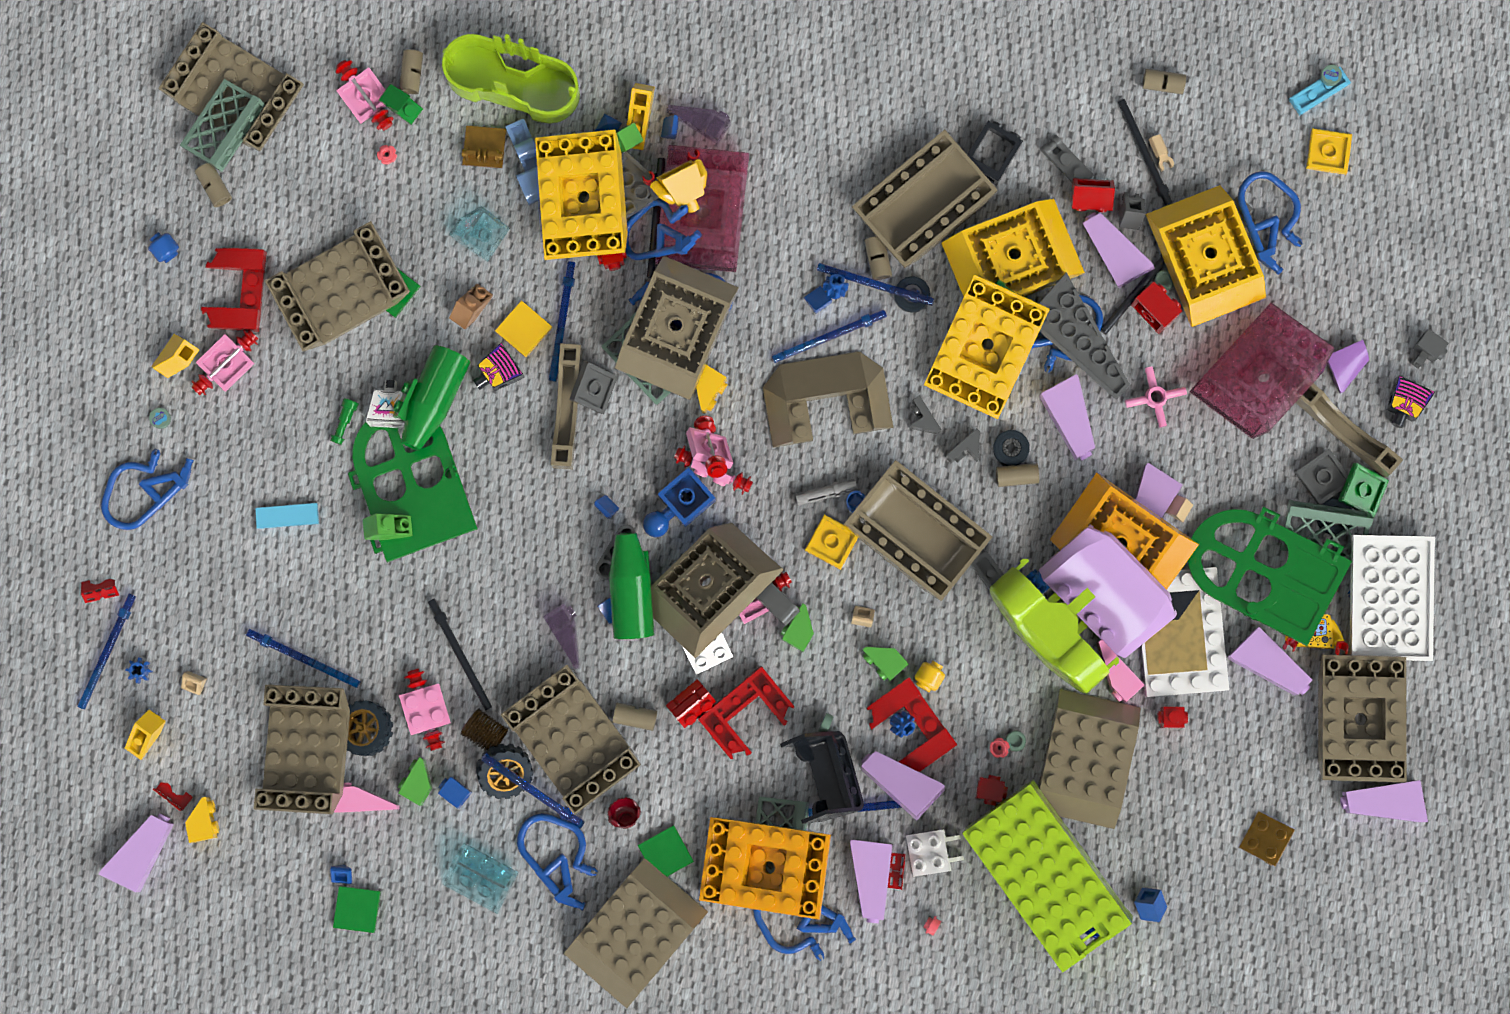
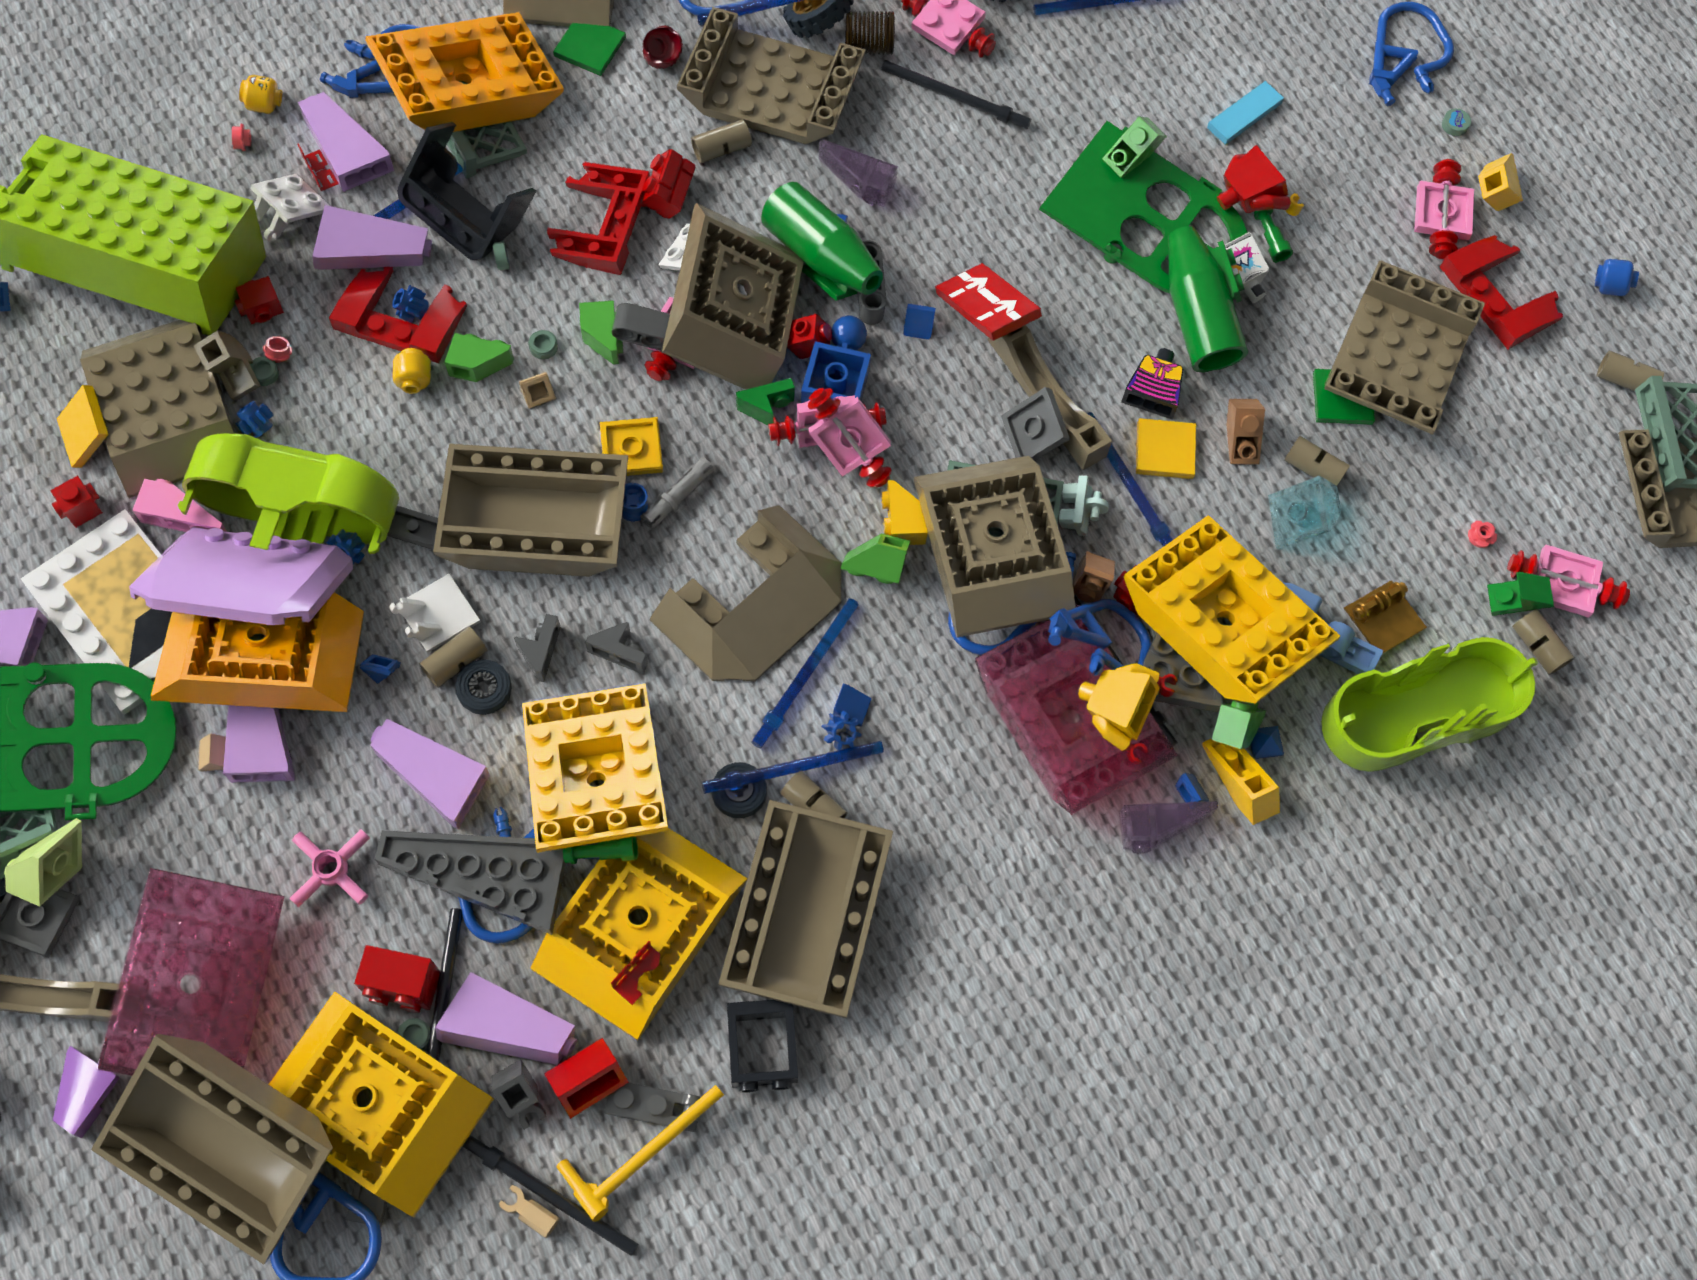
camera: 135 degrees right, 15 degrees down
(332, 454) = (1256, 185): none -> red torso
(445, 258) = (1316, 461): none -> dark tan pin
(560, 484) = (988, 301): none -> red tile
(596, 332) = (1081, 495): none -> light aqua hips
(631, 276) = (1093, 577): none -> medium nougat slope
(680, 536) = (805, 332): none -> red brick
(739, 518) = (758, 400): none -> green slope
(743, 371) = (879, 558): none -> bright green slope
(839, 646) = (543, 344): none -> sand green tile
(901, 949) = (260, 94): none -> yellow head
(1009, 509) = (436, 613): none -> white plate
(1034, 750) = (229, 359): none -> dark tan brick
(1040, 705) = (254, 419): none -> blue gear
(1043, 220) = (628, 984): none -> red piece
(1060, 498) = (379, 667): none -> blue slope
(1125, 136) = (594, 1197): none -> yellow bar
(1143, 764) = (82, 426): none -> yellow tile
(1294, 272) = (215, 1142): none -> dark tan slope
(1306, 493) = (46, 865): none -> yellowish green slope

